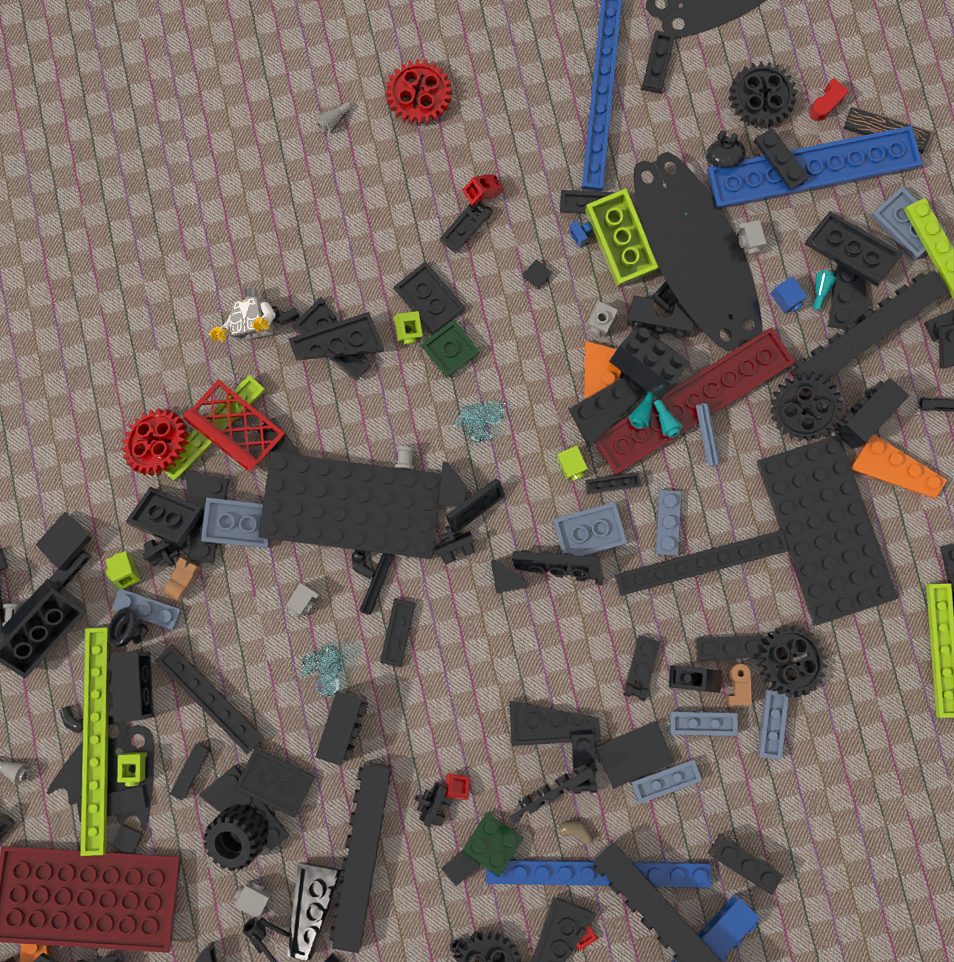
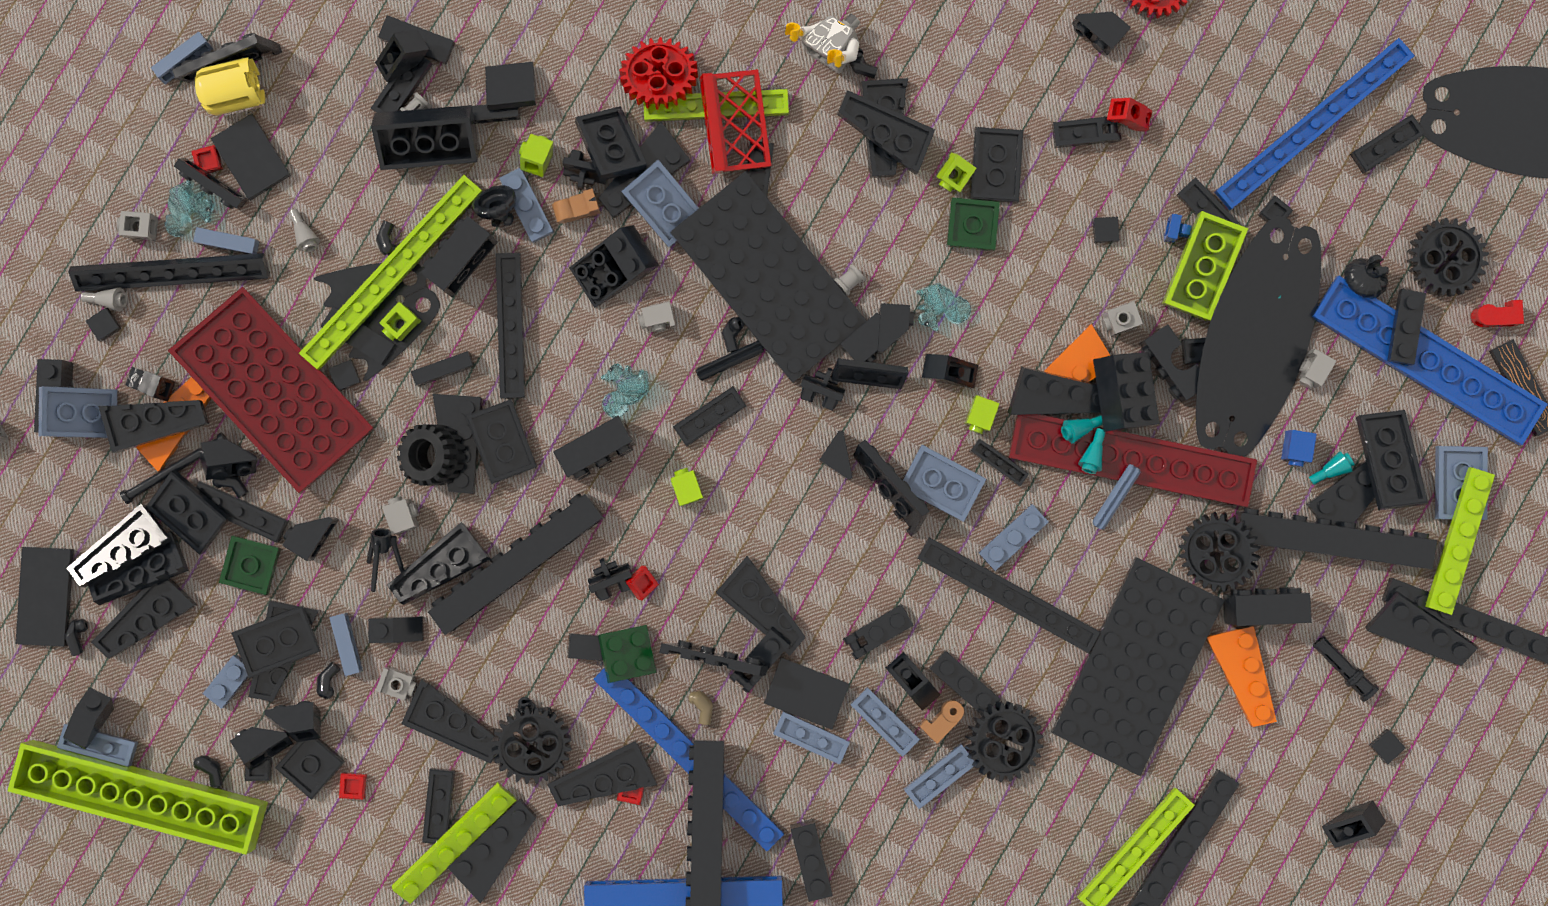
camera: 40 degrees right, 5 degrees up
(241, 593) = (614, 265): none -> black slope
(414, 153) = (1102, 29): none -> black slope
(426, 693) = (686, 486): none -> lime brick
(460, 458) = (893, 324): none -> black slope
(524, 454) = (950, 370): none -> black slope
(627, 165) = (1273, 208): none -> black tile

